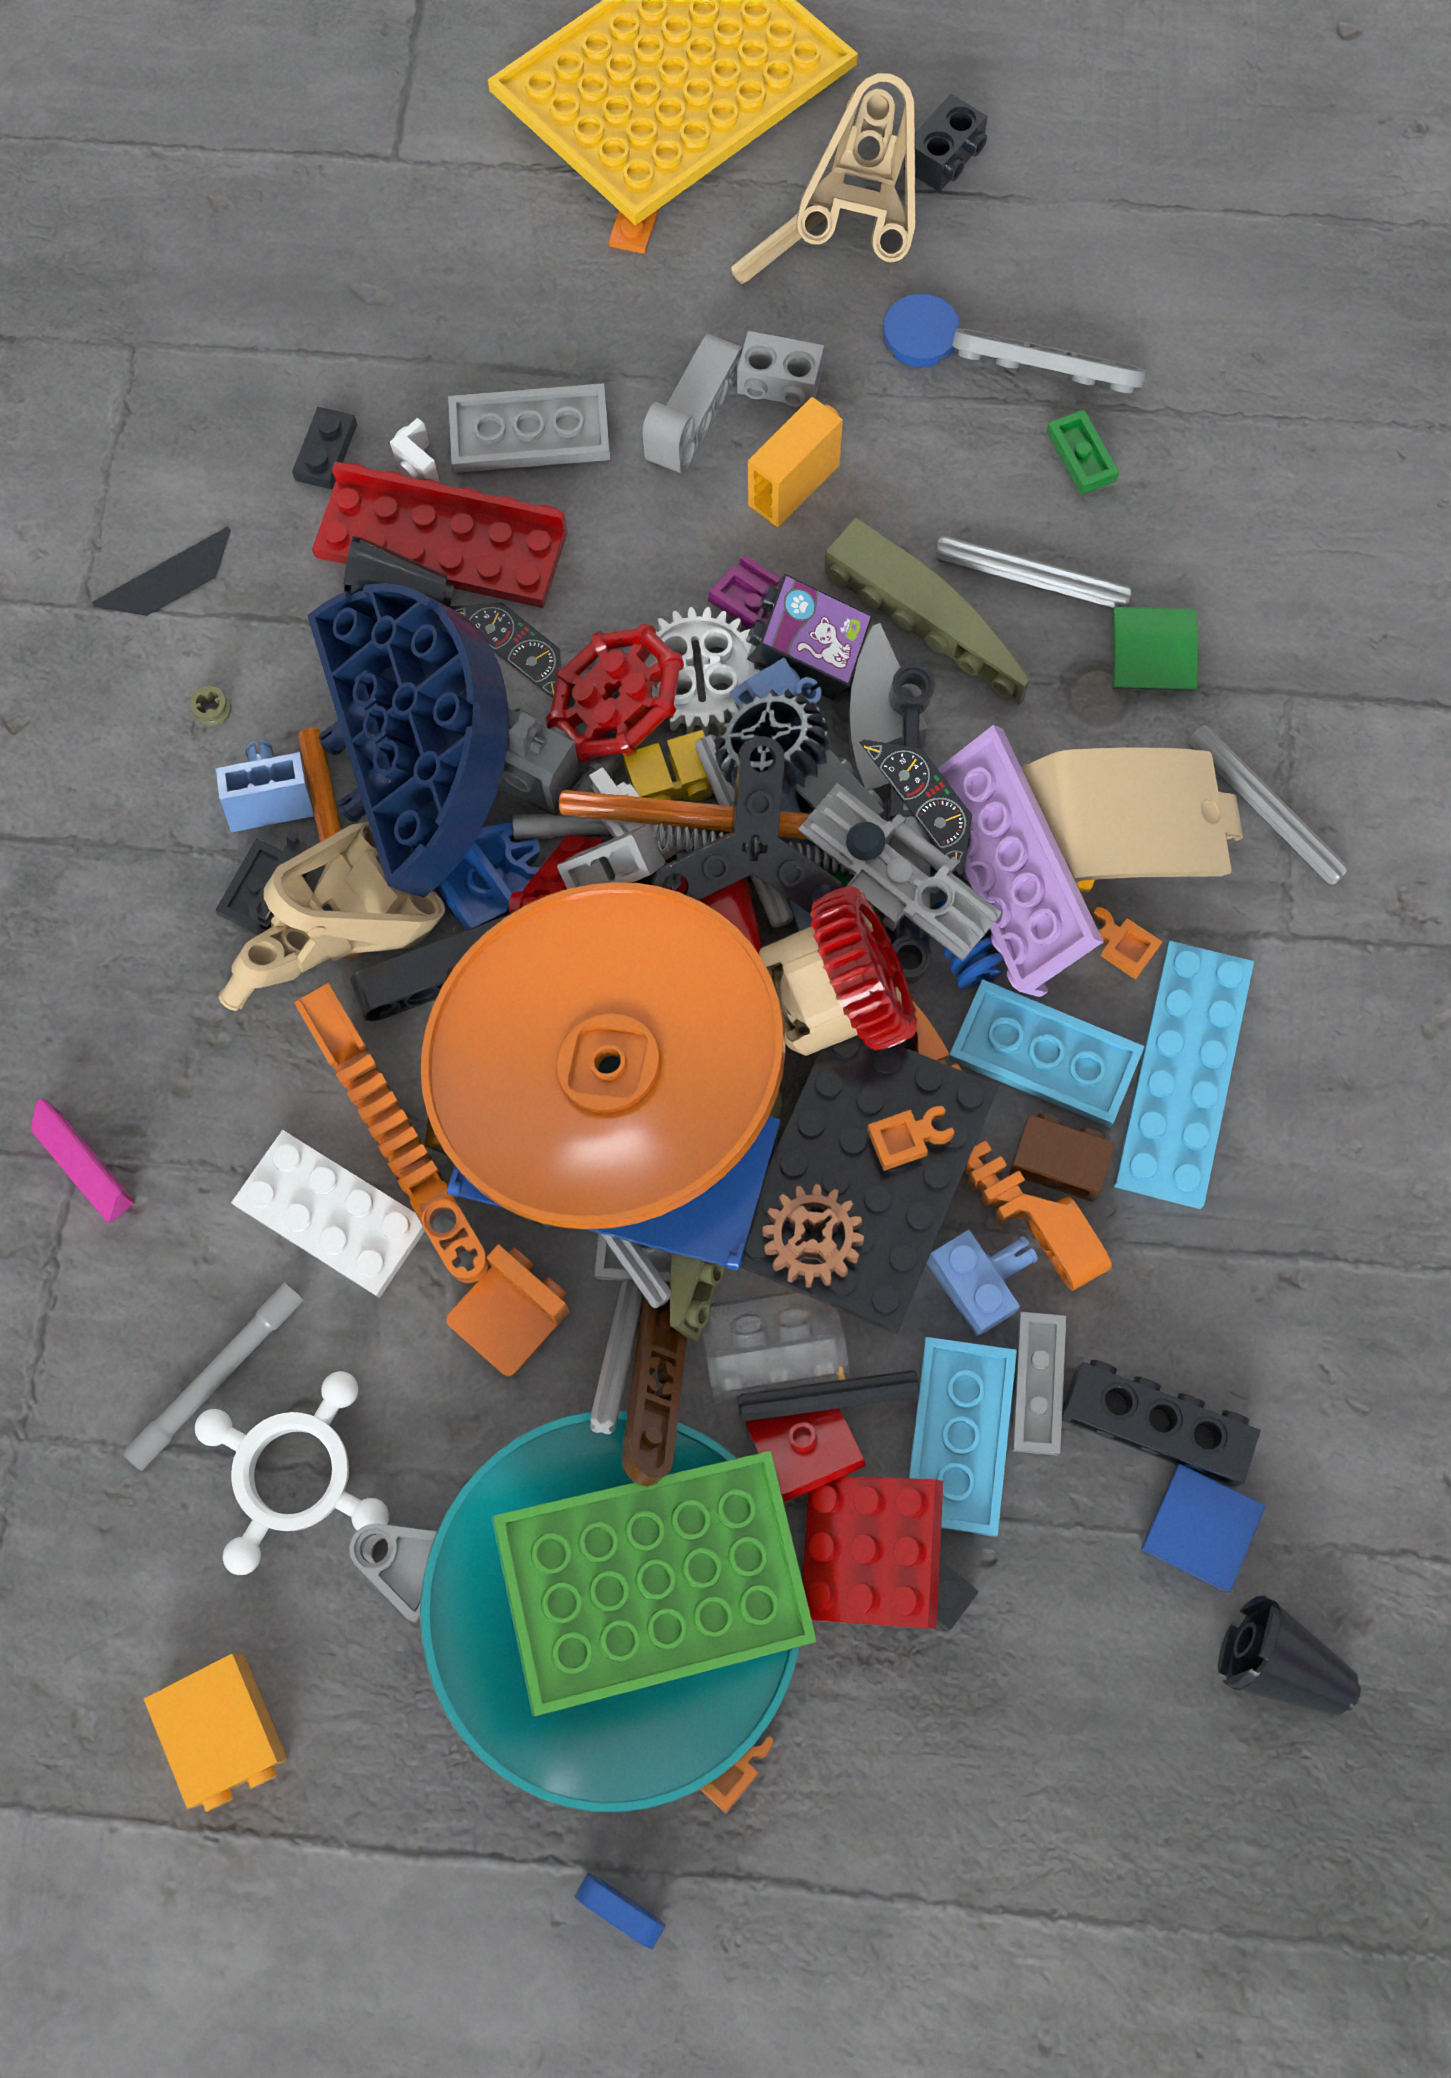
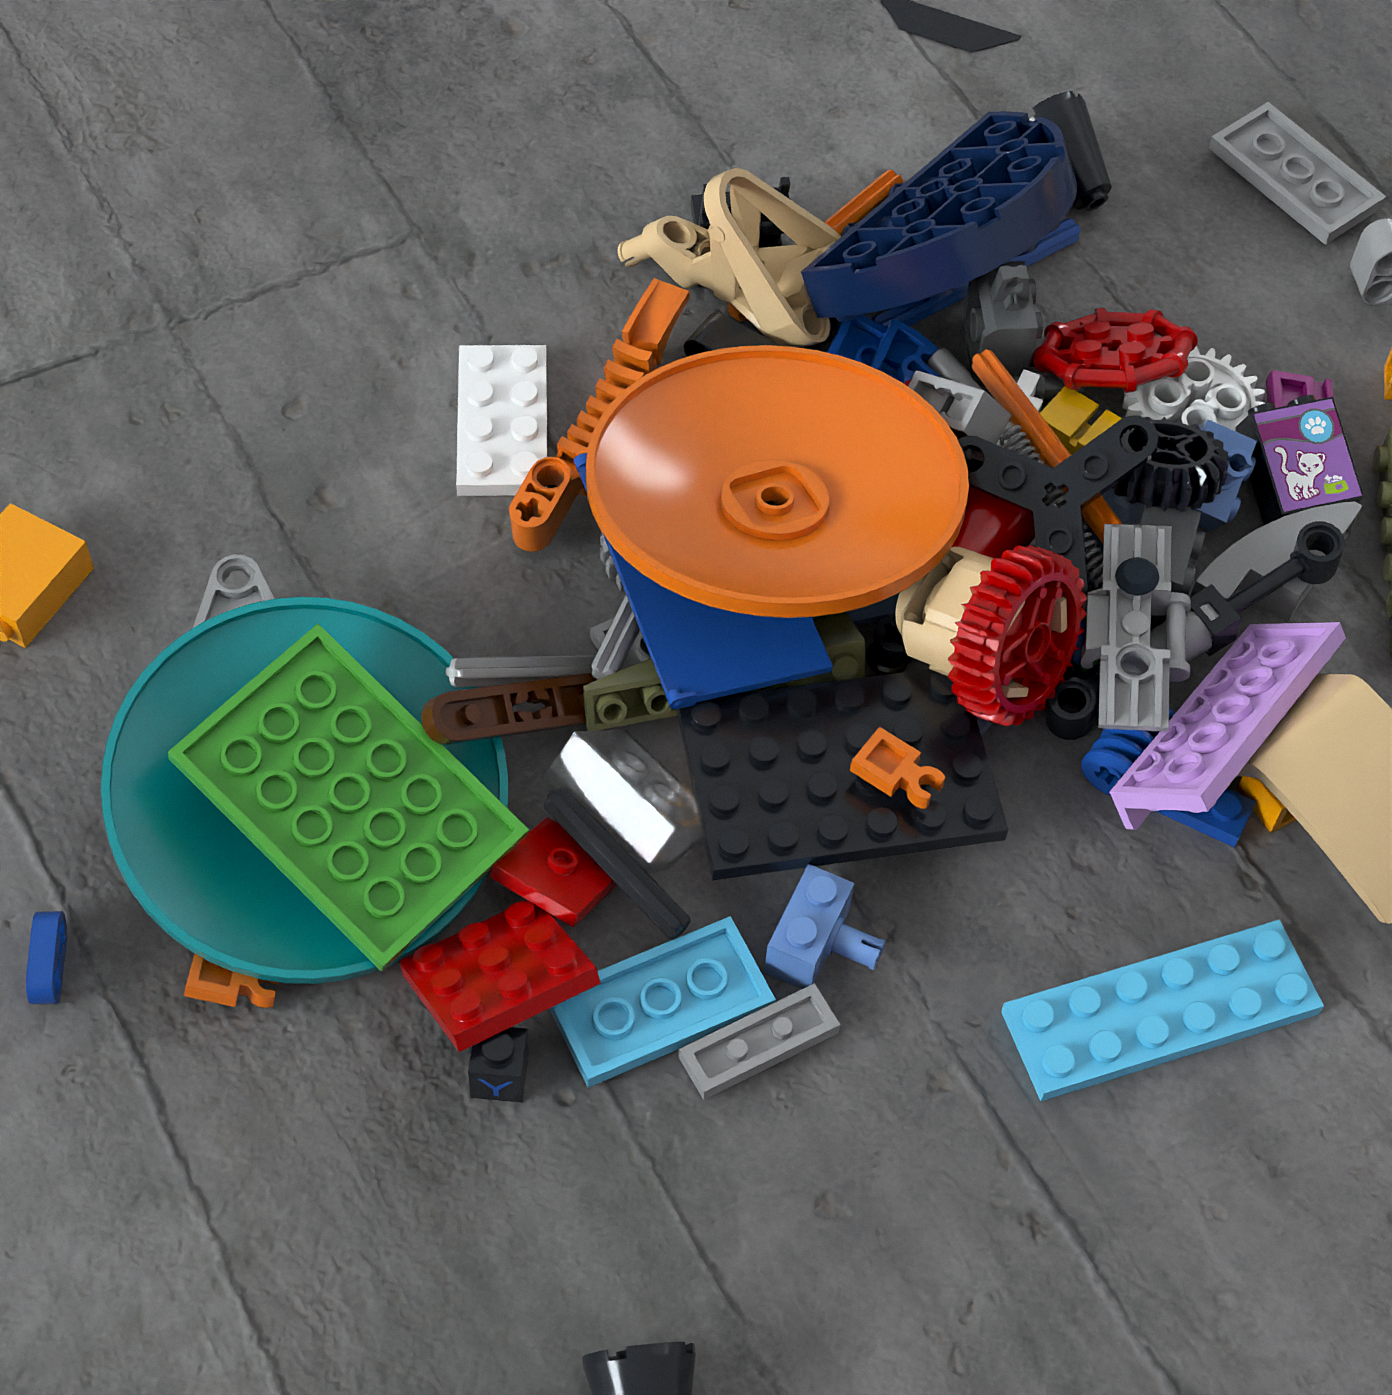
camera: 50 degrees right, 15 degrees down
(79, 1161) = (419, 233): dark pink slope -> none
(160, 1431) = (235, 407): light grey piece -> none
(210, 694) = (862, 96): olive bush -> none
(215, 1428) = (262, 470): white piece -> none
(264, 789) = (817, 168): medium blue brick -> none
(323, 445) = (1146, 55): black plate -> none
(409, 452) = (1198, 103): white bracket -> none
(470, 536) = (1156, 178): red bracket -> none
(509, 1312) = (512, 585): orange bracket -> none
(516, 642) = (1102, 268): black sticker -> none
(825, 1251) = (744, 740): nougat gear -> none
(925, 795) = (1228, 616): black sticker -> none
(1046, 1053) = (1080, 875): medium azure plate -> none
(1056, 1225) = (921, 970): orange piece -> none
(1062, 1156) = (990, 939): reddish brown brick -> none
(1126, 946) = (1240, 884): orange plate -> none
(1203, 1528) = (727, 1271): blue tile -> none
(1233, 1437) = (805, 1247): black brick -> none

